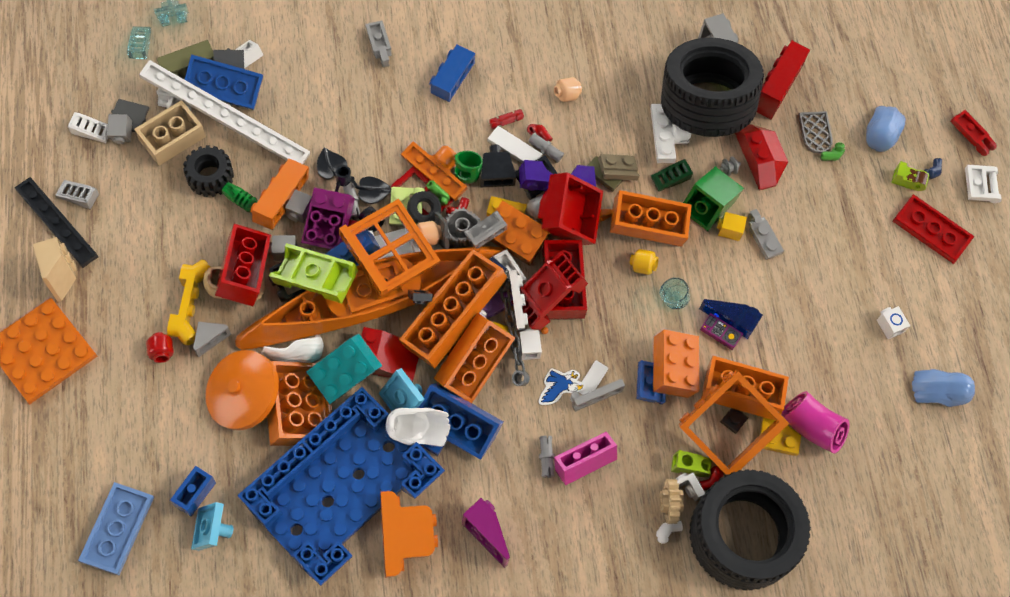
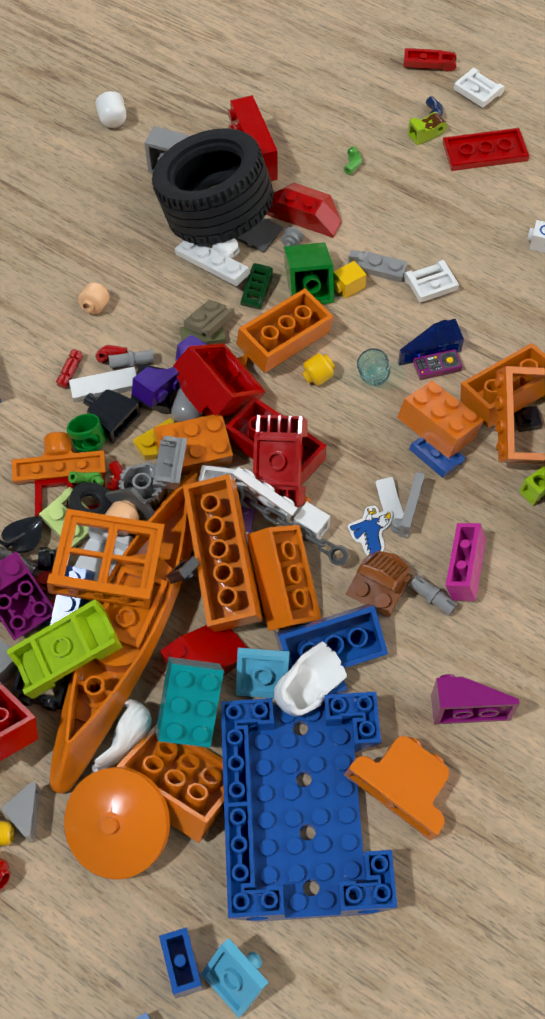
camera: 40 degrees left, 5 degrees down
(527, 417) = (380, 581): none -> dark orange piece
(717, 146) = (261, 235): none -> dark grey piece
(782, 282) = (433, 285): none -> white plate
(805, 136) = (296, 156): light grey window -> none
(884, 128) = (367, 111): medium blue hair -> none

